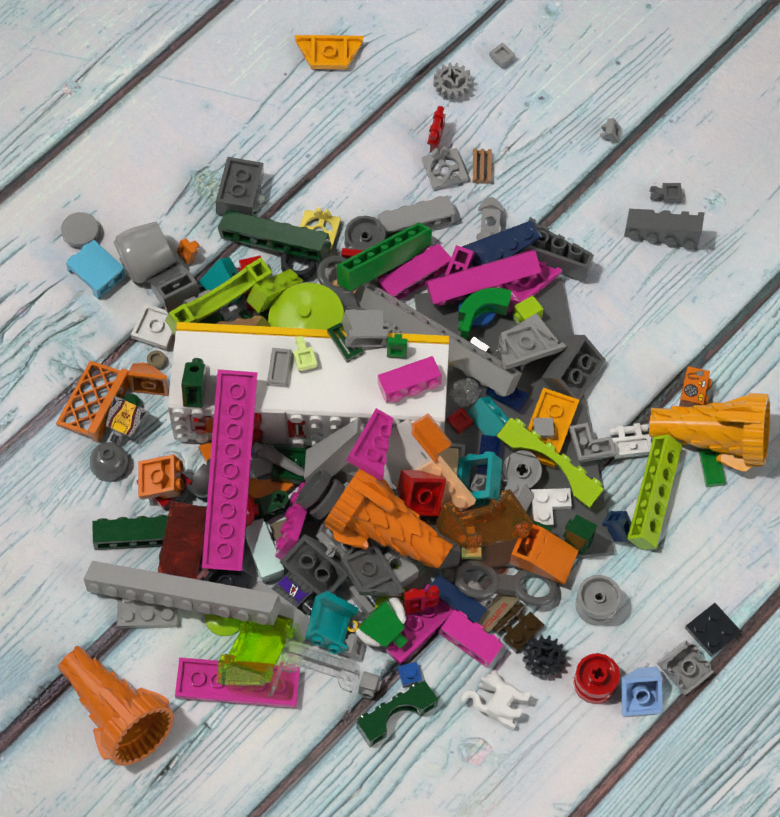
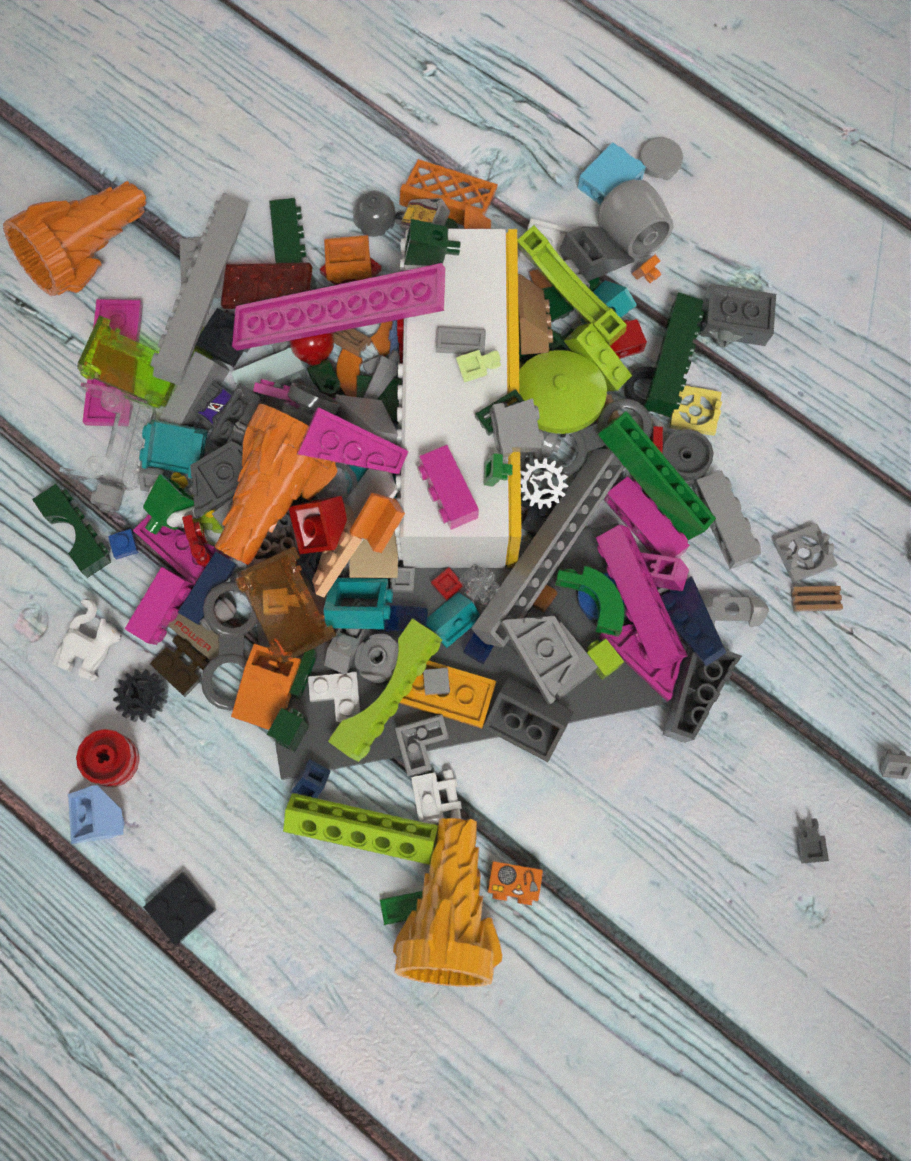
camera: 90 degrees right, 10 degrees up
(436, 128) = (858, 536): red plate -> none
(598, 600) = (196, 750): light grey wheel -> none
(665, 227) = (753, 838): dark grey wedge -> none
(685, 667) = (127, 871): light grey slope -> none

